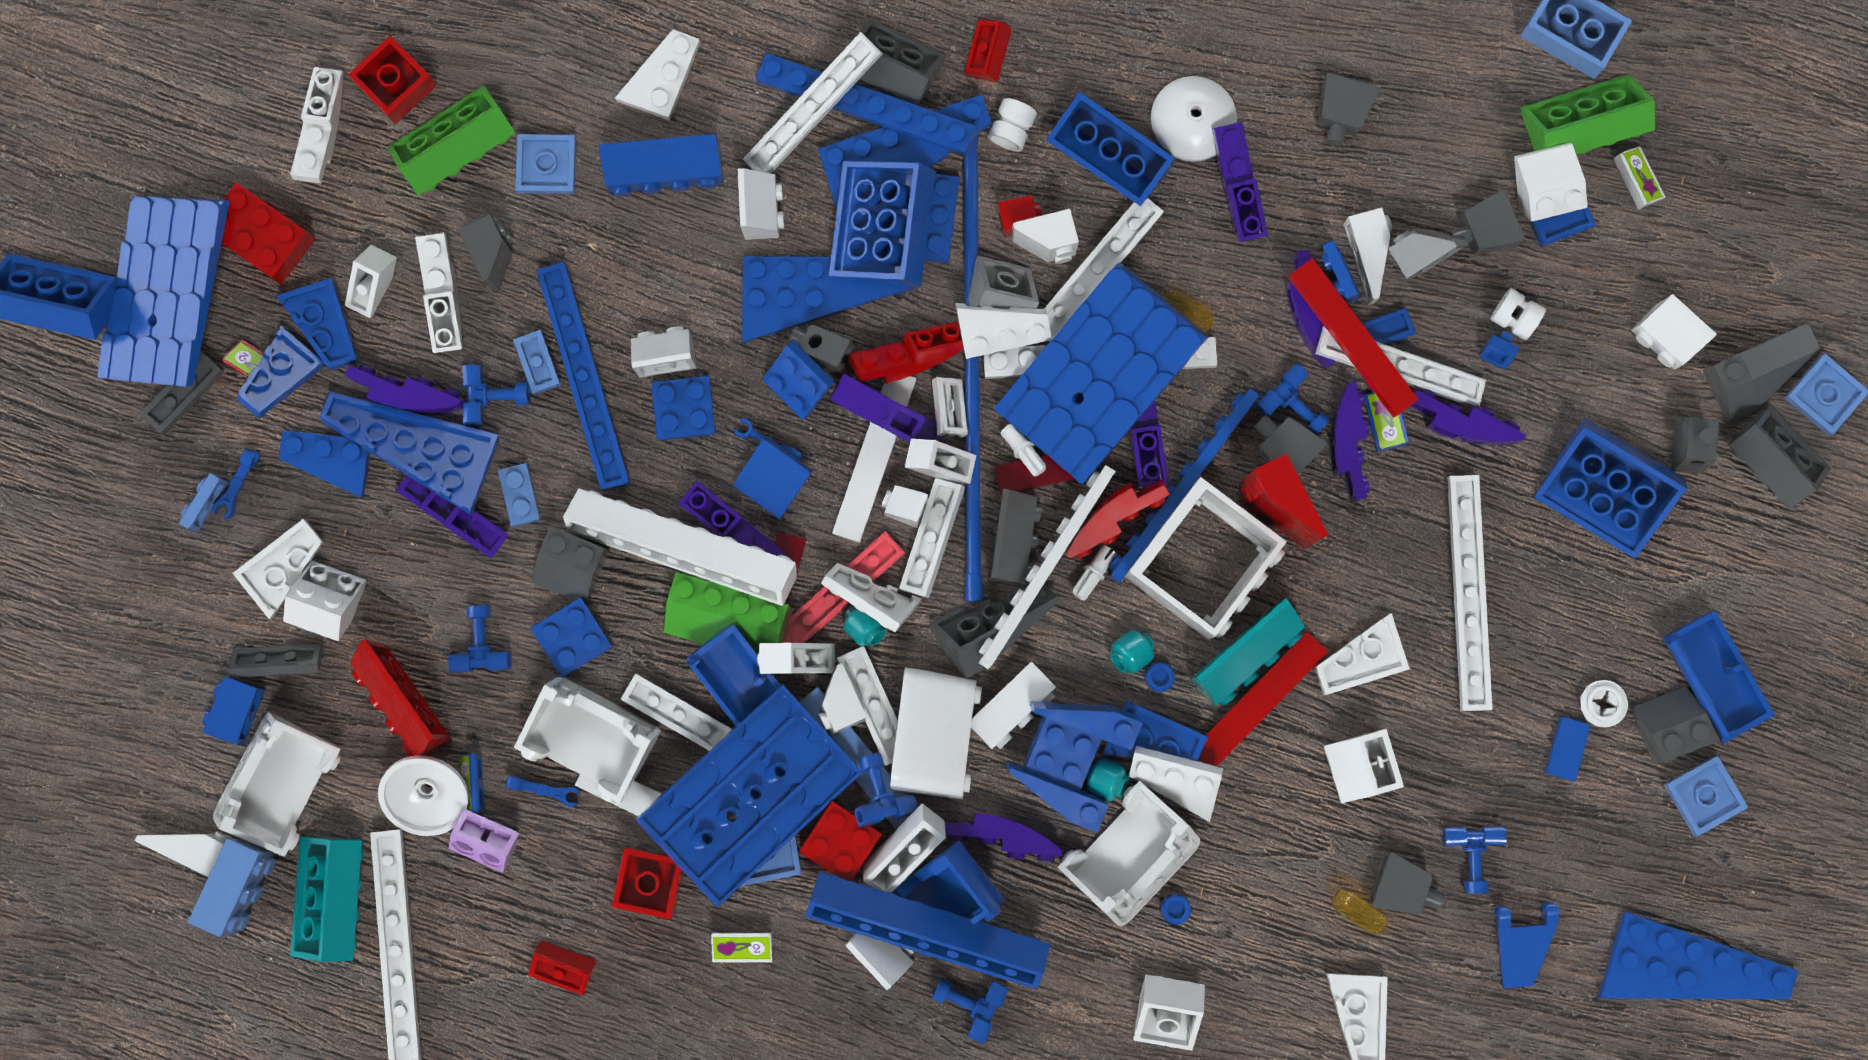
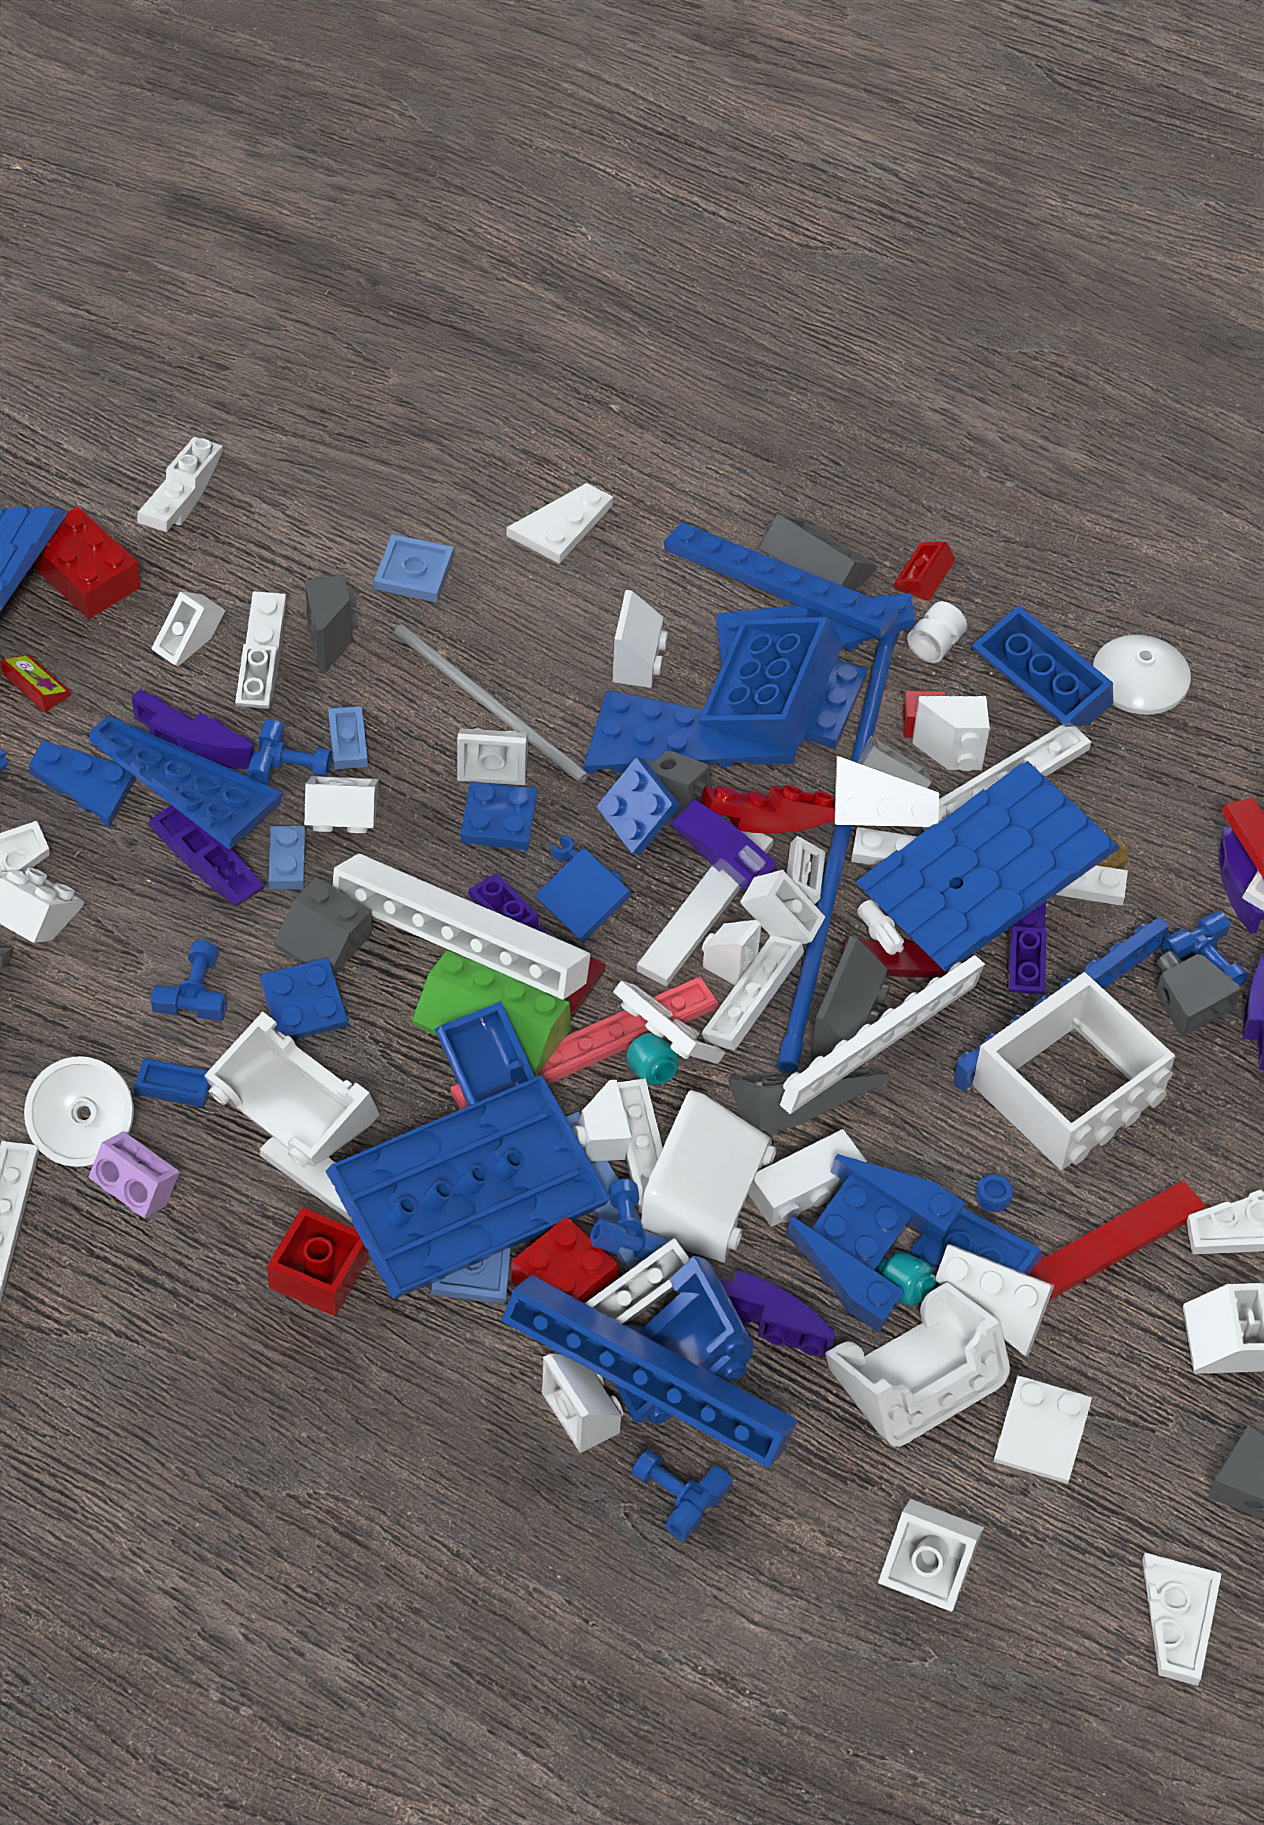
camera: 10 degrees right, 30 degrees down
(280, 372) = (59, 683): wing -> none
(322, 320) = (121, 652): blue wing -> none
(392, 80) = (274, 461): red brick -> none
(398, 698) = (81, 997): red slope -> none
(451, 140) = (320, 527): bright green slope -> none
(472, 773) = (145, 1105): blue slope -> none
(488, 736) = (172, 1083): none -> blue tile
(542, 789) = (192, 1134): blue piece -> none
(549, 431) = (341, 803): none -> white slope
(561, 967) = (179, 1342): red slope -> none
(583, 376) = (395, 762): blue plate -> none
(647, 291) = (491, 703): none -> light grey piece
(662, 164) = (542, 584): blue slope -> none
(674, 712) = (392, 1092): white plate -> none
(741, 946) = (410, 1363): slope -> none
(796, 658) = (562, 1056): white slope -> none
(813, 105) = (728, 562): white tile -> none
(1094, 573) = (936, 1067): white axle -> none
(1102, 522) = (960, 1010): slope -> none
(1132, 651) = (966, 1153): teal head -> none
(1175, 909) = (963, 1445): blue tile -> none
(1234, 887) = (1042, 1429): none -> white slope
(1239, 183) = (1181, 731): dark purple slope -> none
(1249, 652) = (1107, 1177): teal slope -> none
(1282, 501) = (1180, 1011): red slope -> none
(1359, 912) = (1198, 1493): clear yellow tile -> none

